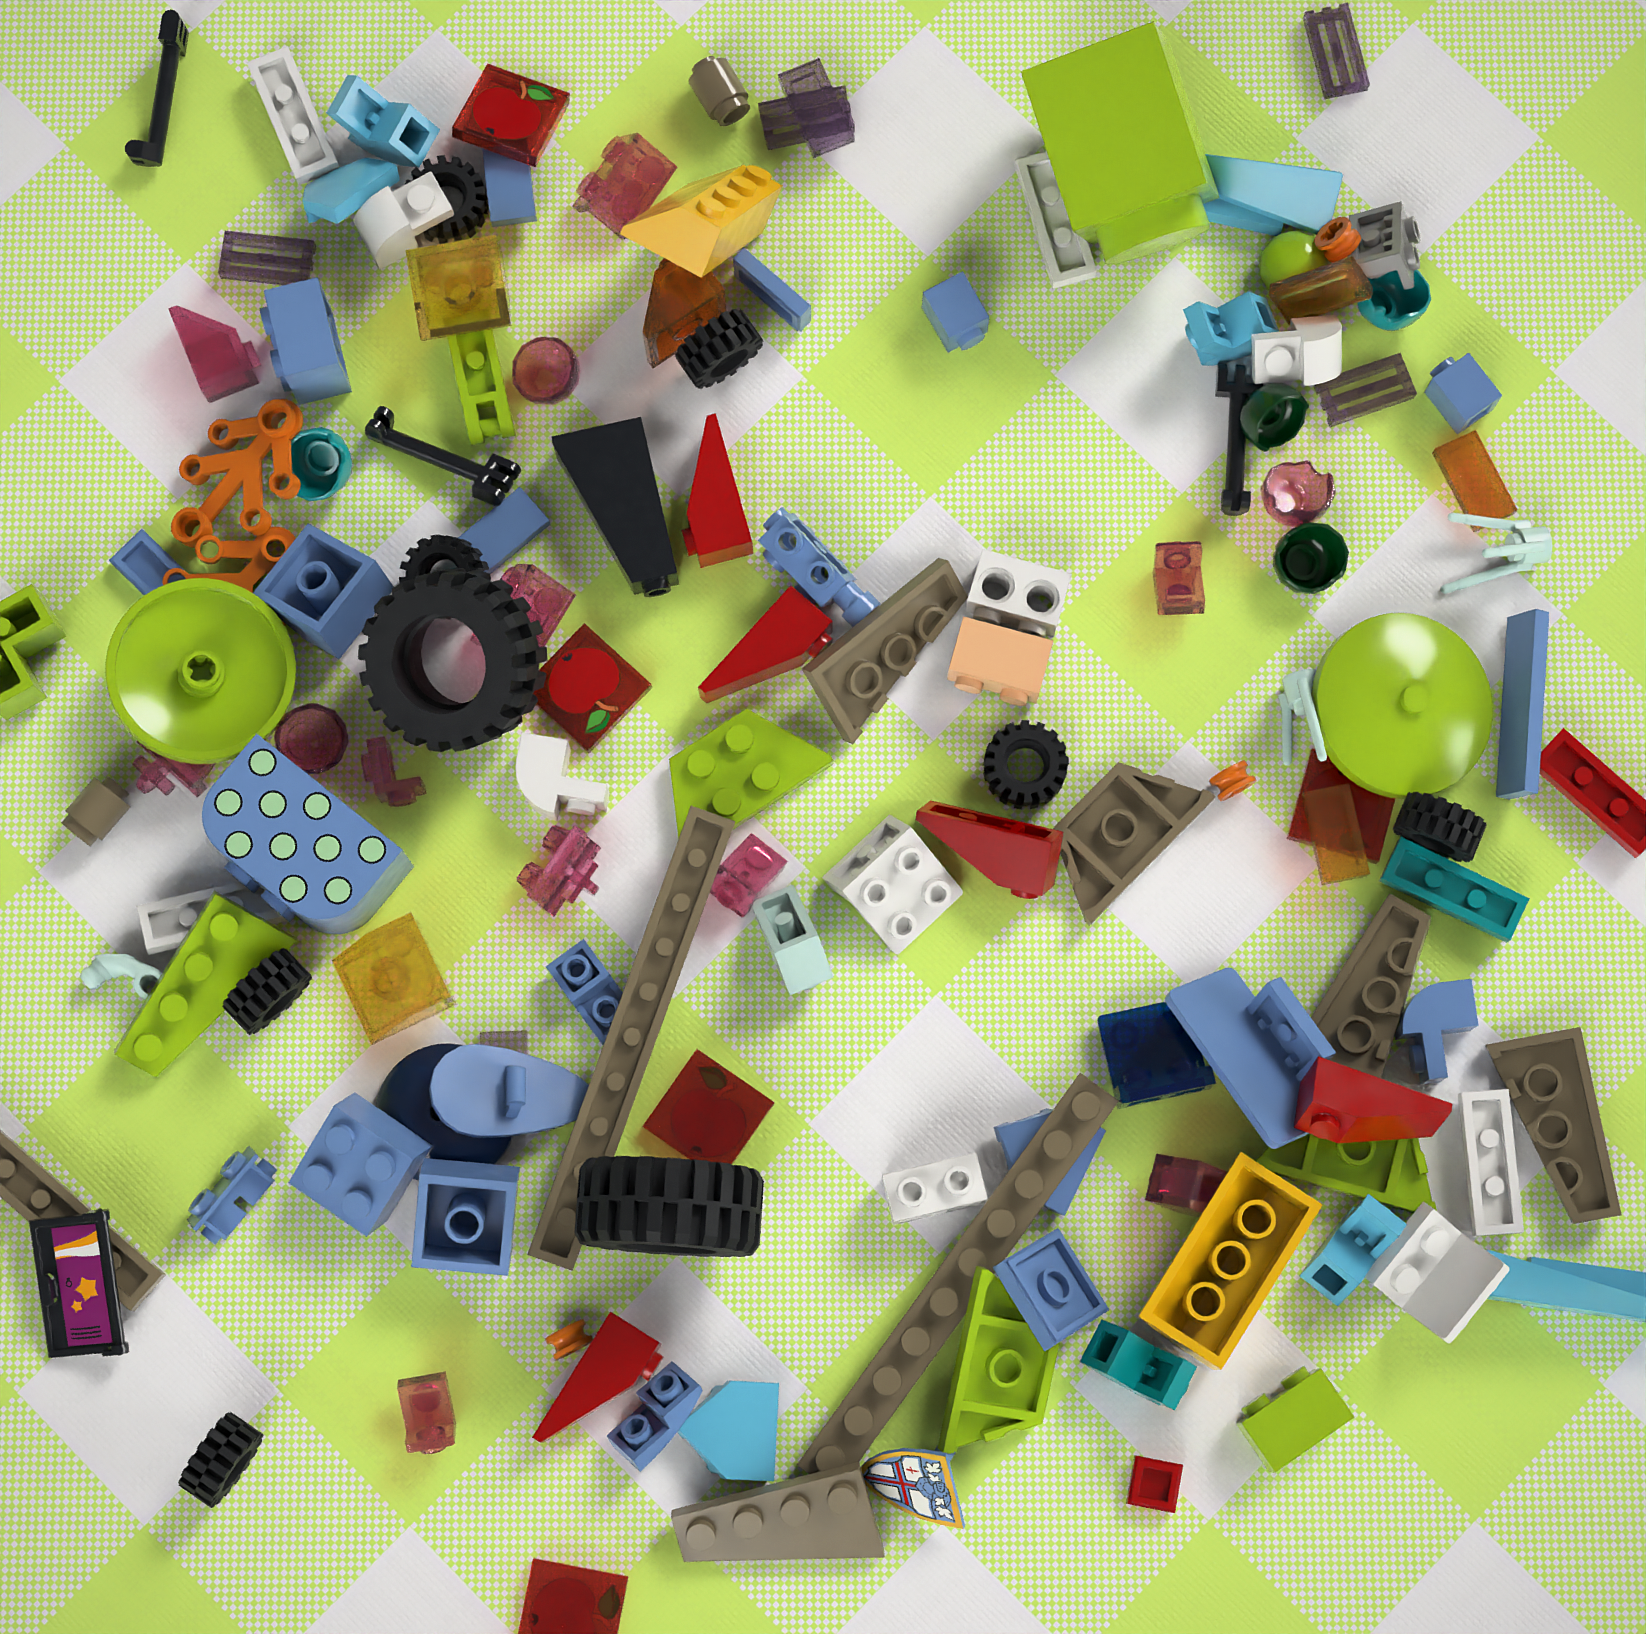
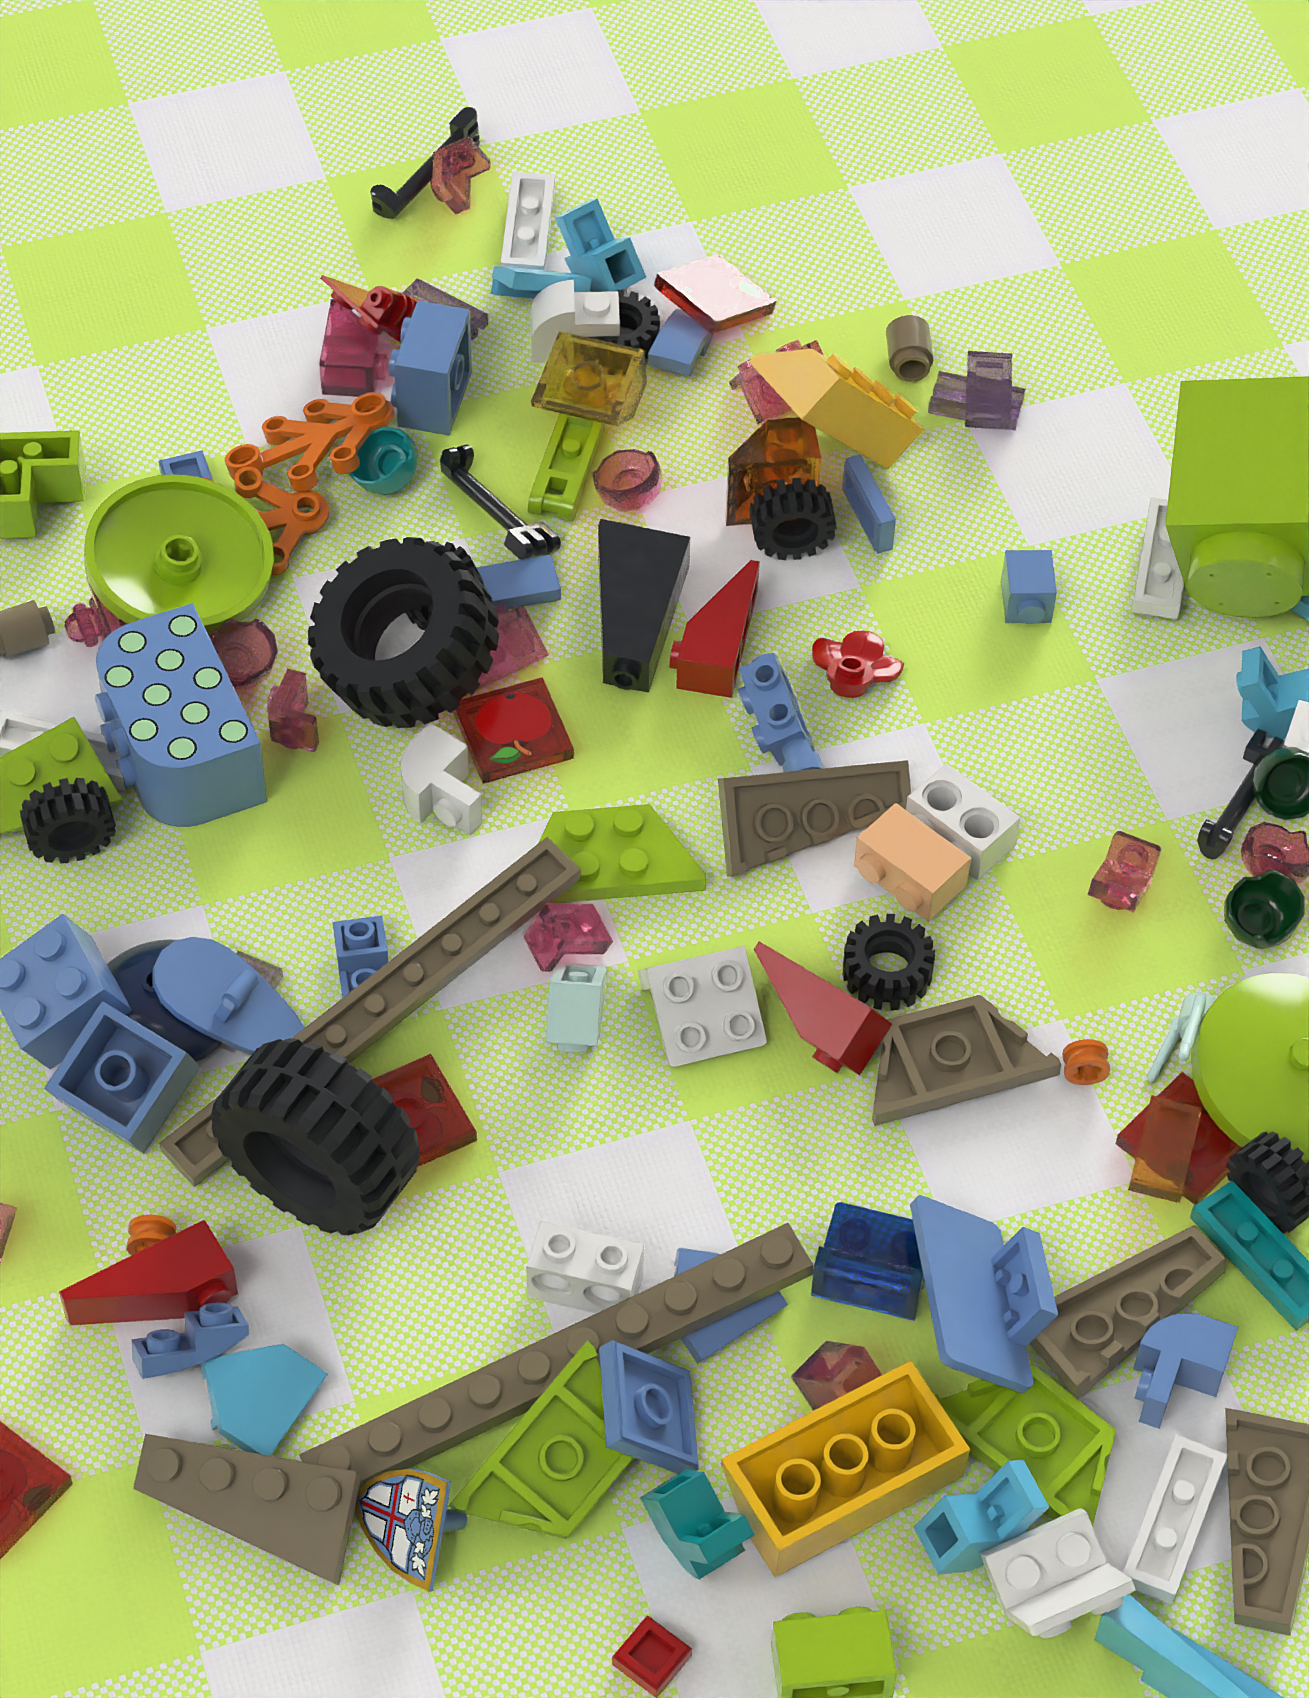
camera: 25 degrees right, 25 degrees down
(190, 92) = (453, 172): none -> bracket
(217, 300) = (379, 308): none -> red hinge
(324, 590) = (316, 542): medium blue slope -> none
(393, 978) = (190, 870): clear yellow slope -> none
(565, 873) = (398, 854): clear pink hips -> none
(774, 645) = (692, 762): red slope -> none
(843, 460) = (855, 662): none -> red plate
(1360, 1107) = (1065, 1383): red slope -> none

